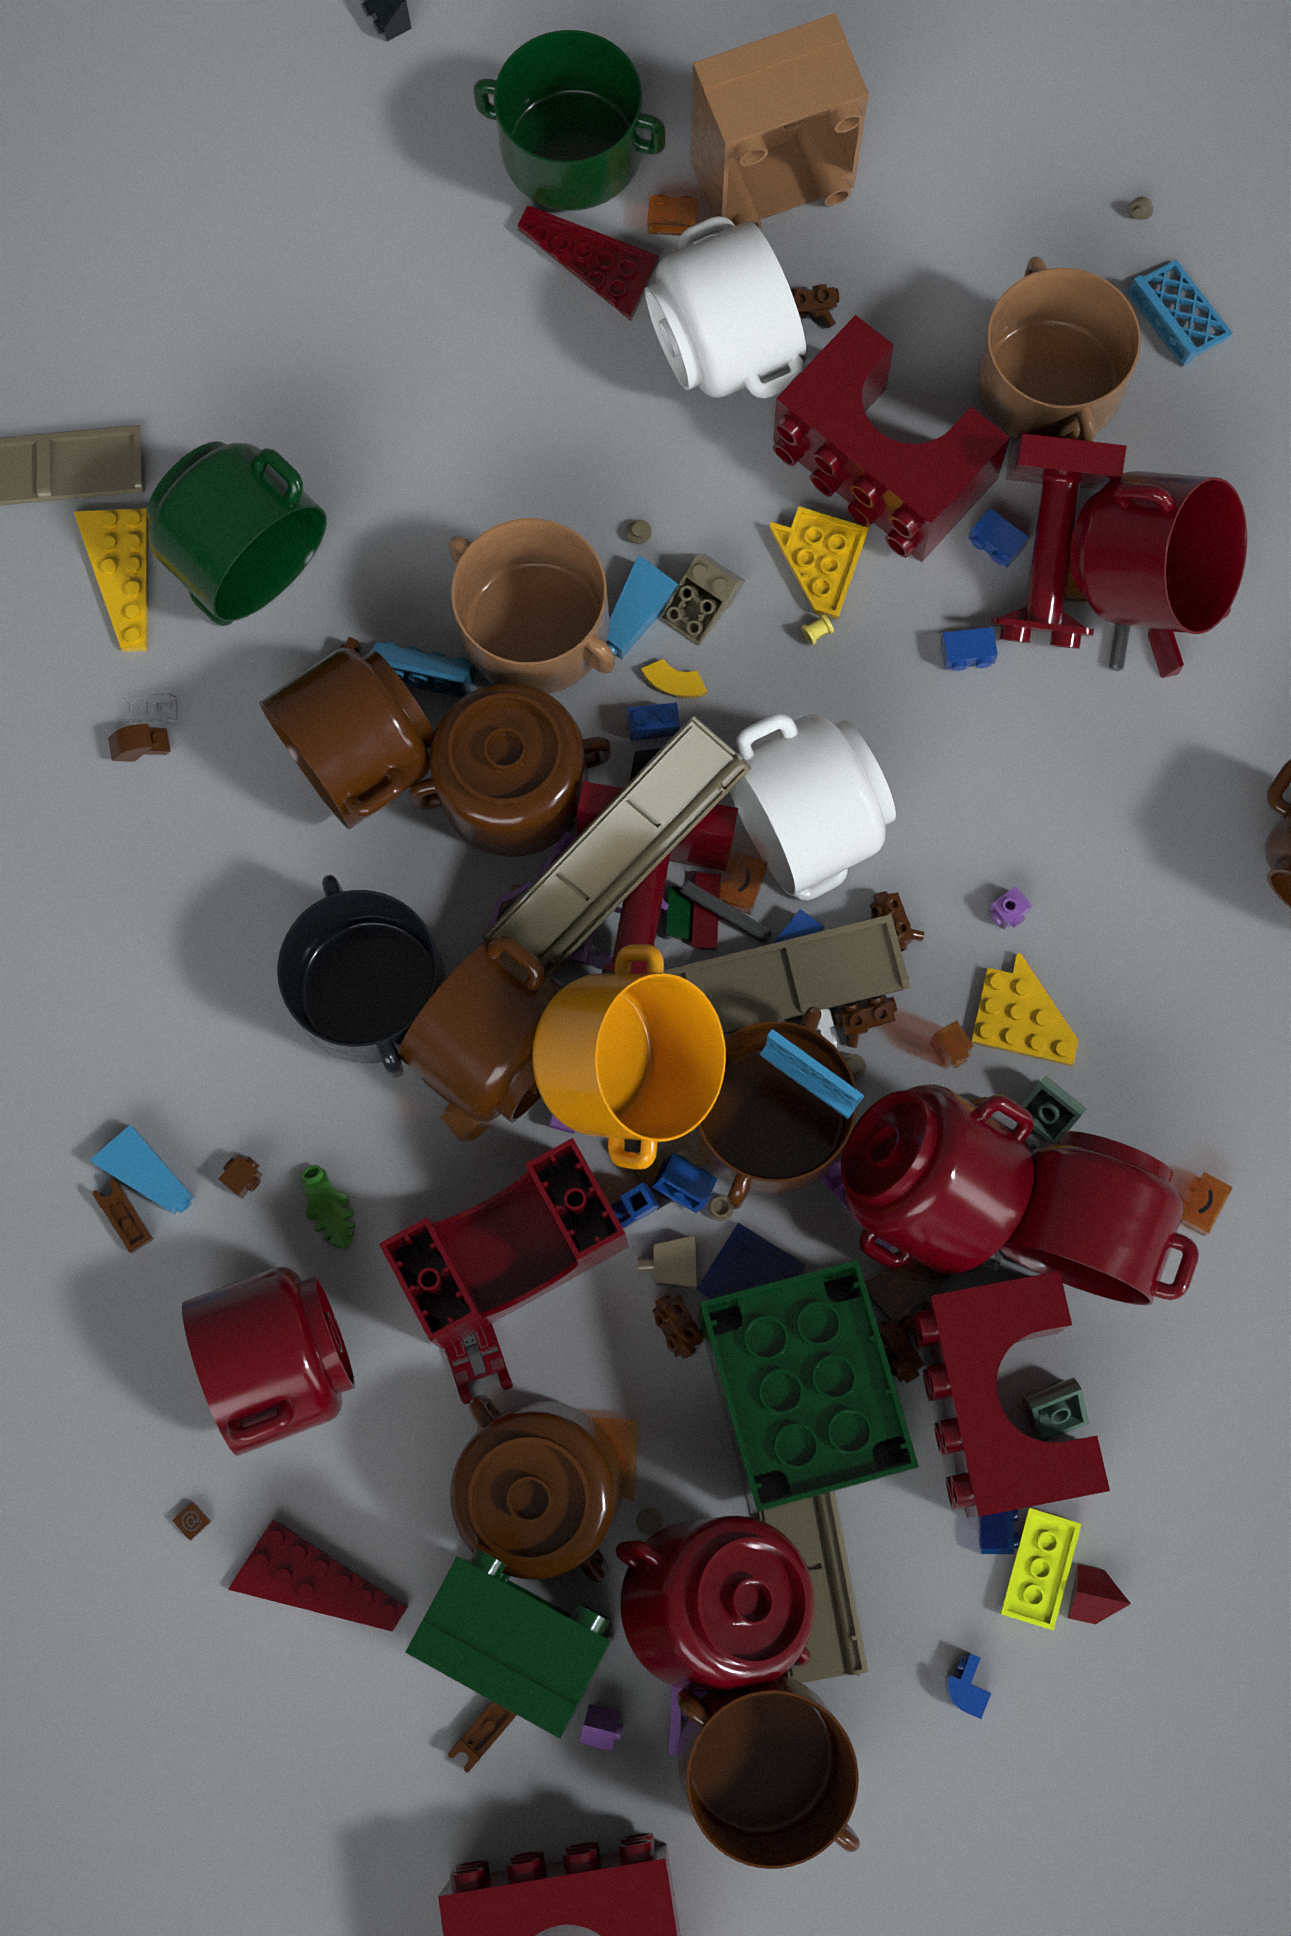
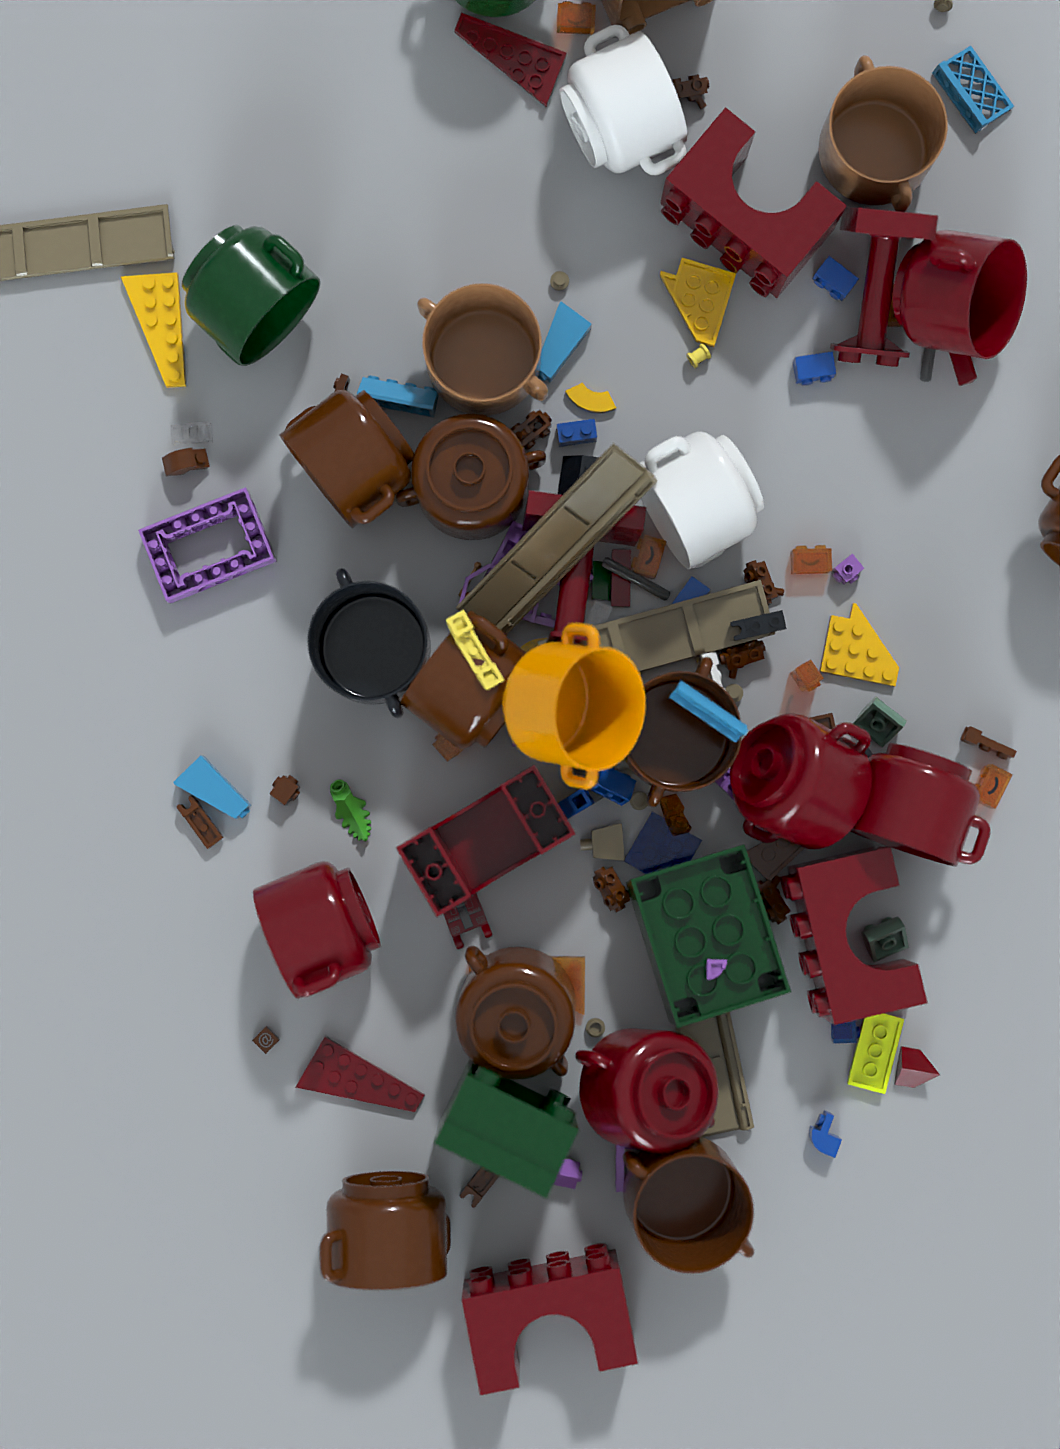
camera: 10 degrees left, 10 degrees up
(148, 816) = (158, 535): none -> medium lavender brick
(337, 1795) = (385, 1232): none -> reddish brown piece
(494, 977) = (471, 648): none -> light yellow slope
(588, 715) = (528, 433): none -> reddish brown brick
(701, 598) = (609, 333): dark tan slope -> none
(766, 1226) = (673, 813): none -> clear orange slope
(812, 1428) = (714, 967): none -> medium lavender tile
(887, 973) = (759, 625): none -> black plate
(960, 894) = (811, 560): none -> clear orange brick
(1179, 1135) = (973, 737): none -> reddish brown plate

